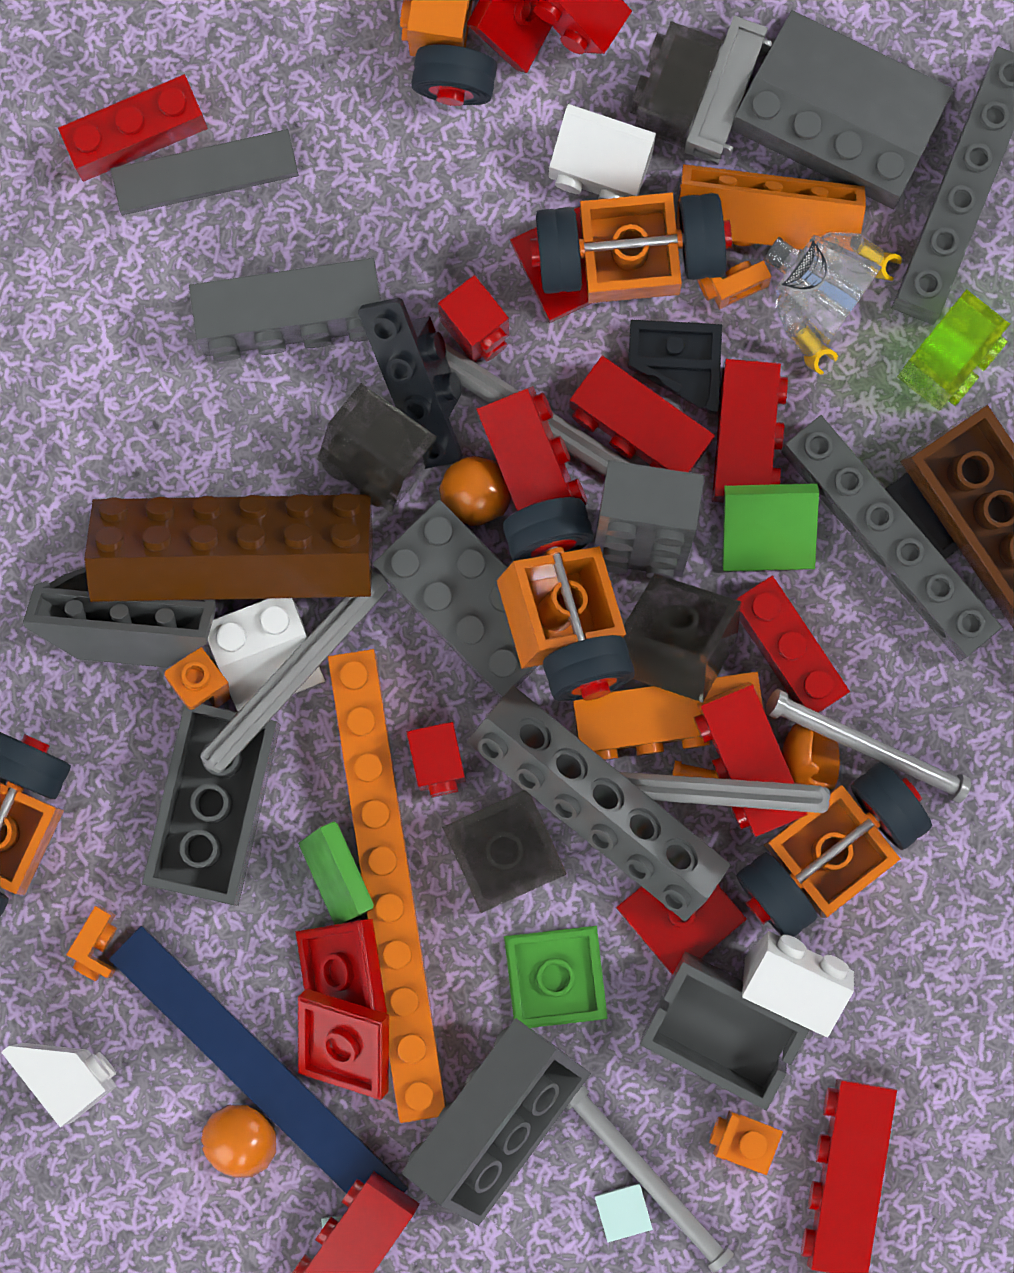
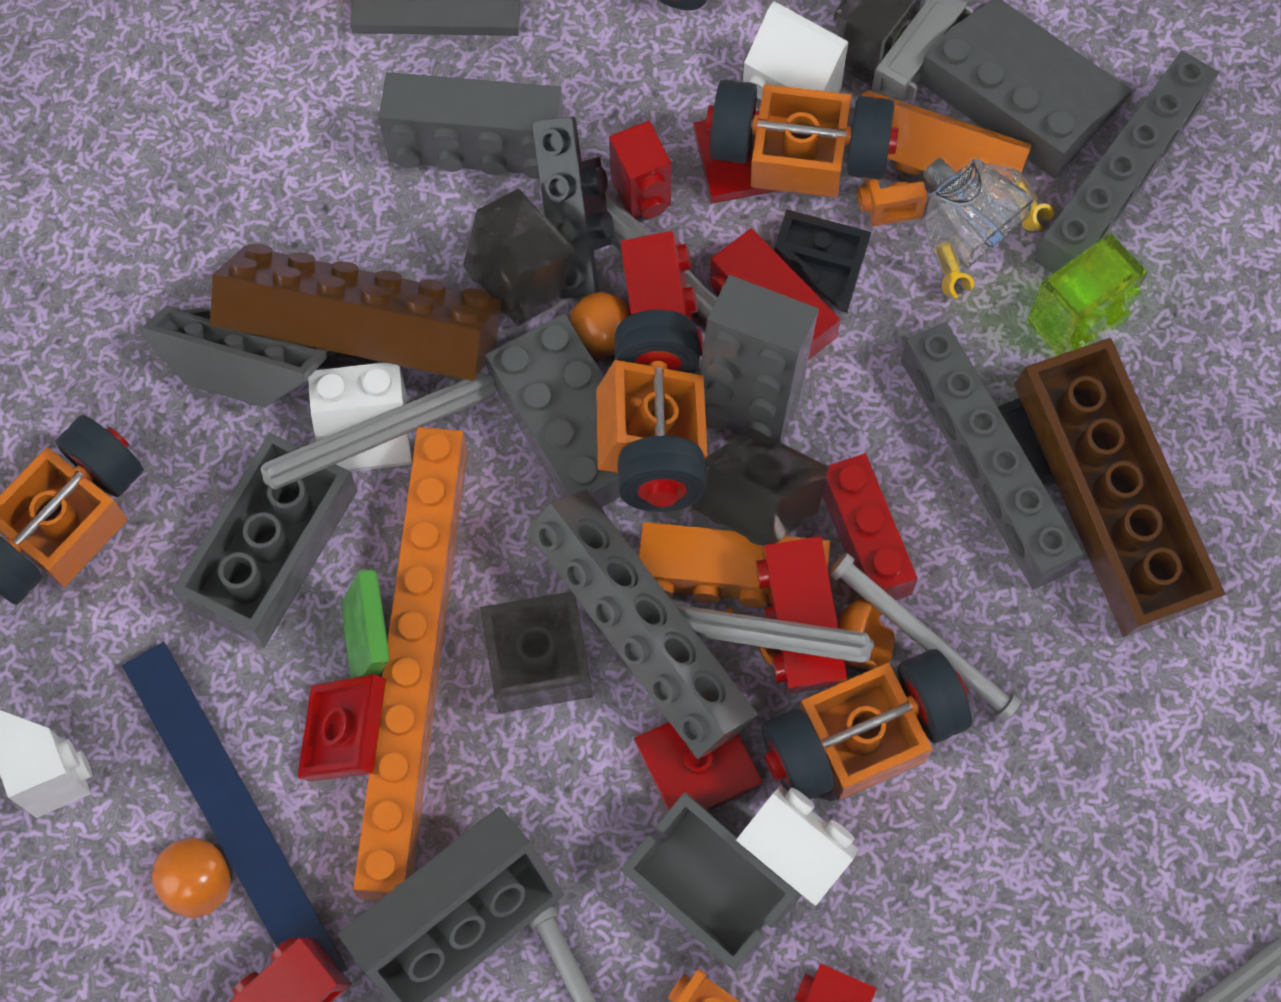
camera: 15 degrees right, 15 degrees down
(94, 935) = (110, 639): orange bracket -> none
(198, 680) = (287, 418): orange bracket -> none
(343, 1044) = (321, 797): red plate -> none
(436, 759) = (494, 545): red brick -> none
(556, 977) = (557, 792): bright green tile -> none
(748, 425) = (873, 331): red brick -> none
(770, 527) = (874, 414): bright green tile -> none

